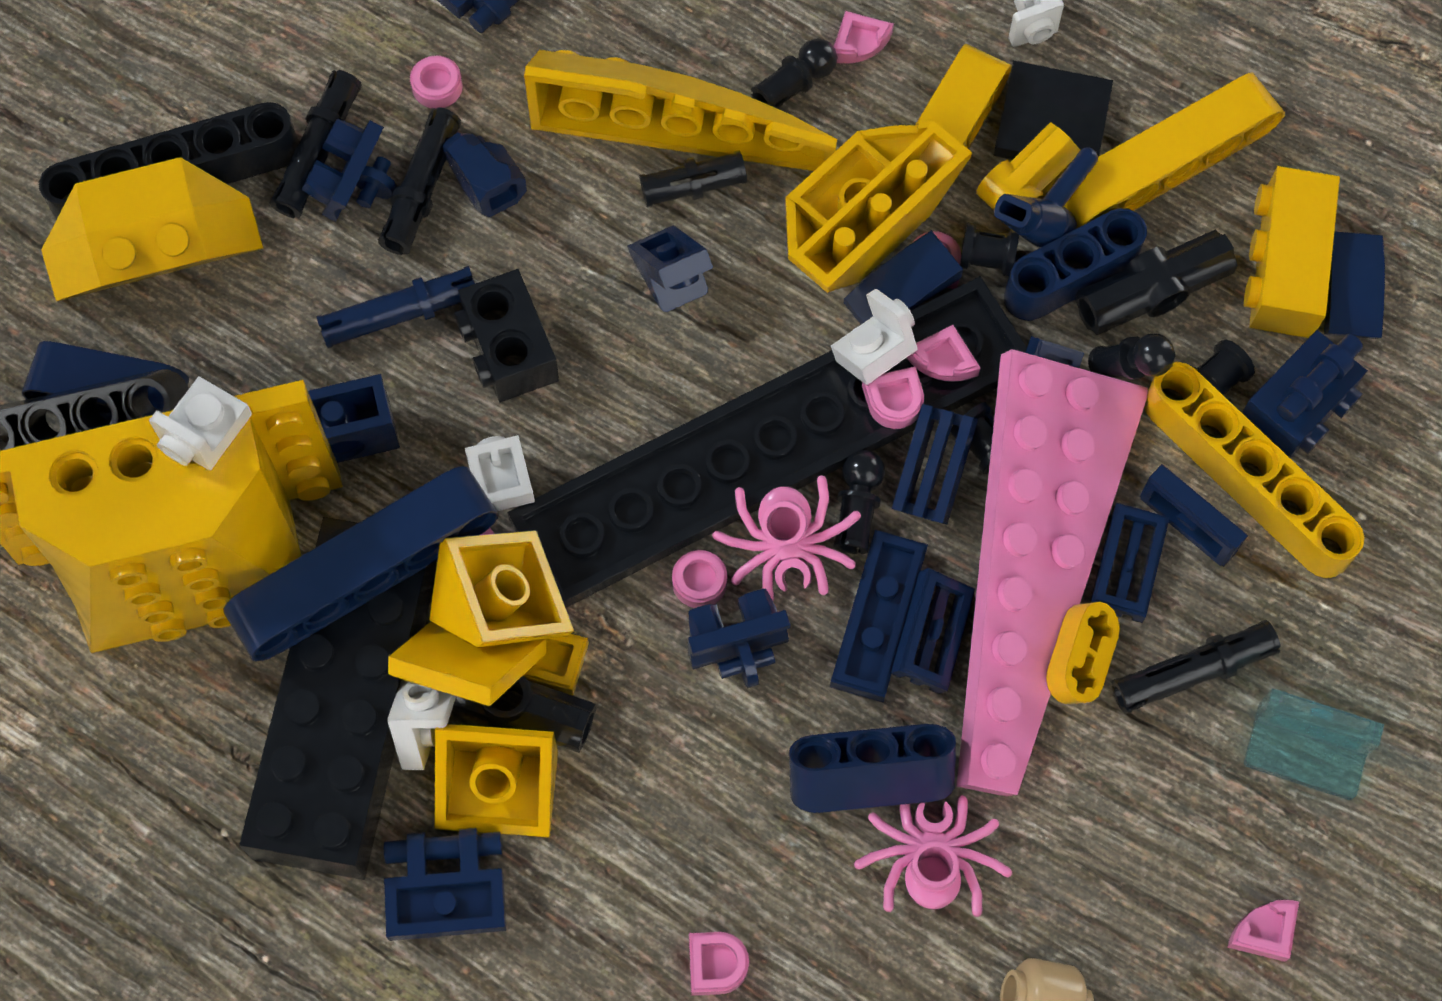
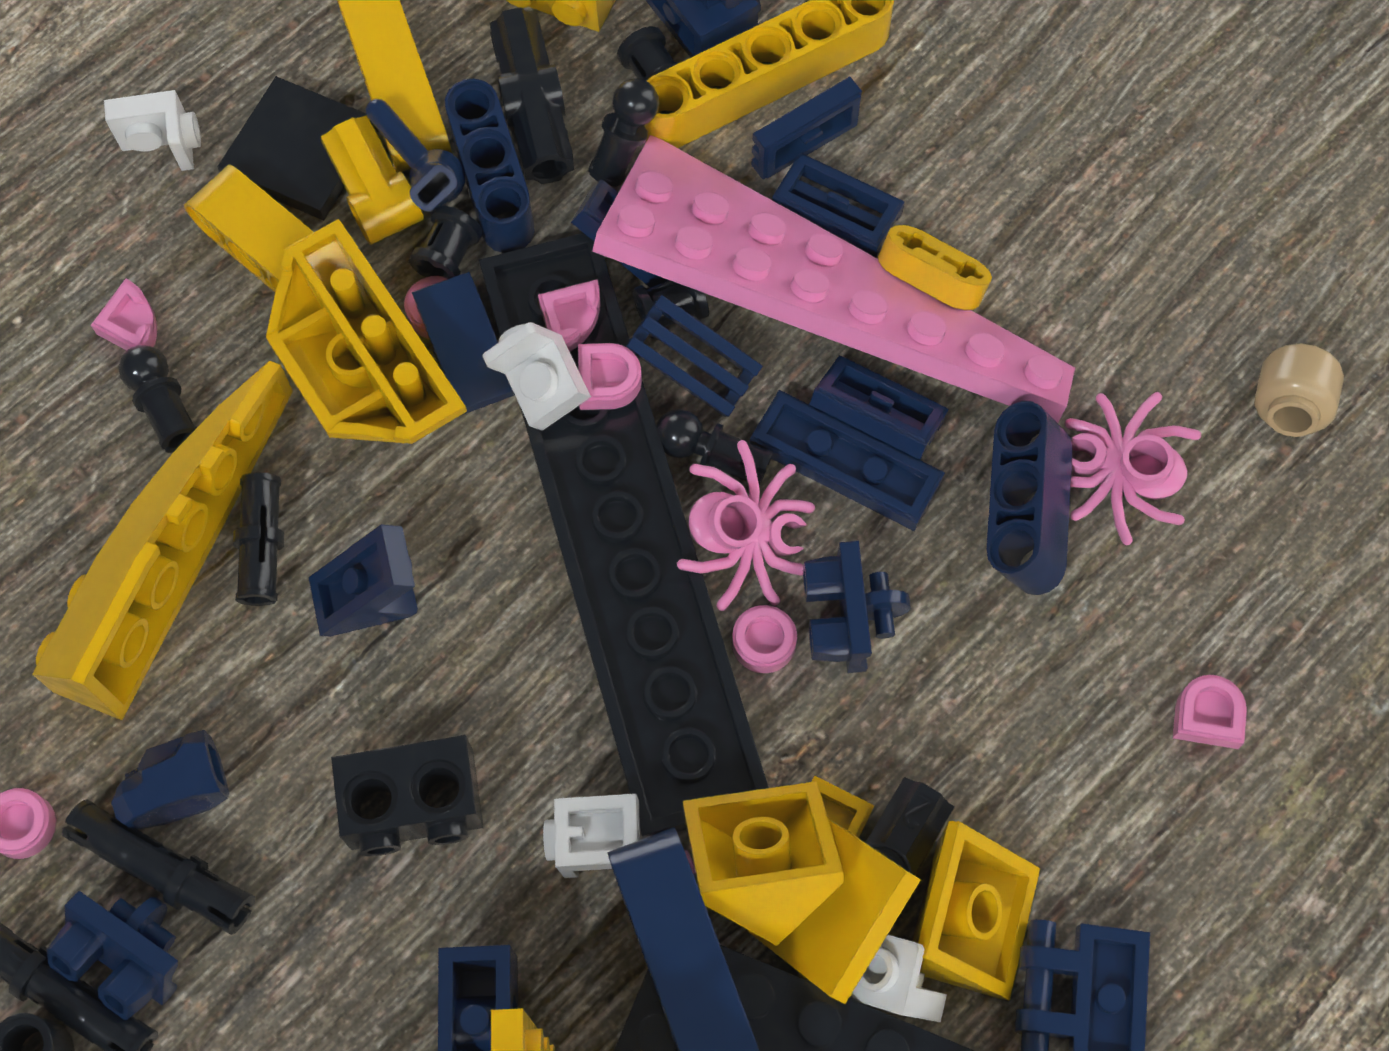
camera: 75 degrees left, 0 degrees up
(395, 307) = (328, 926): dark blue pin -> none
(1215, 659) = (962, 148): black pin -> none
(1267, 930) = (1243, 180): bright pink tile -> none
(1311, 743) = (1065, 92): clear light blue panel -> none

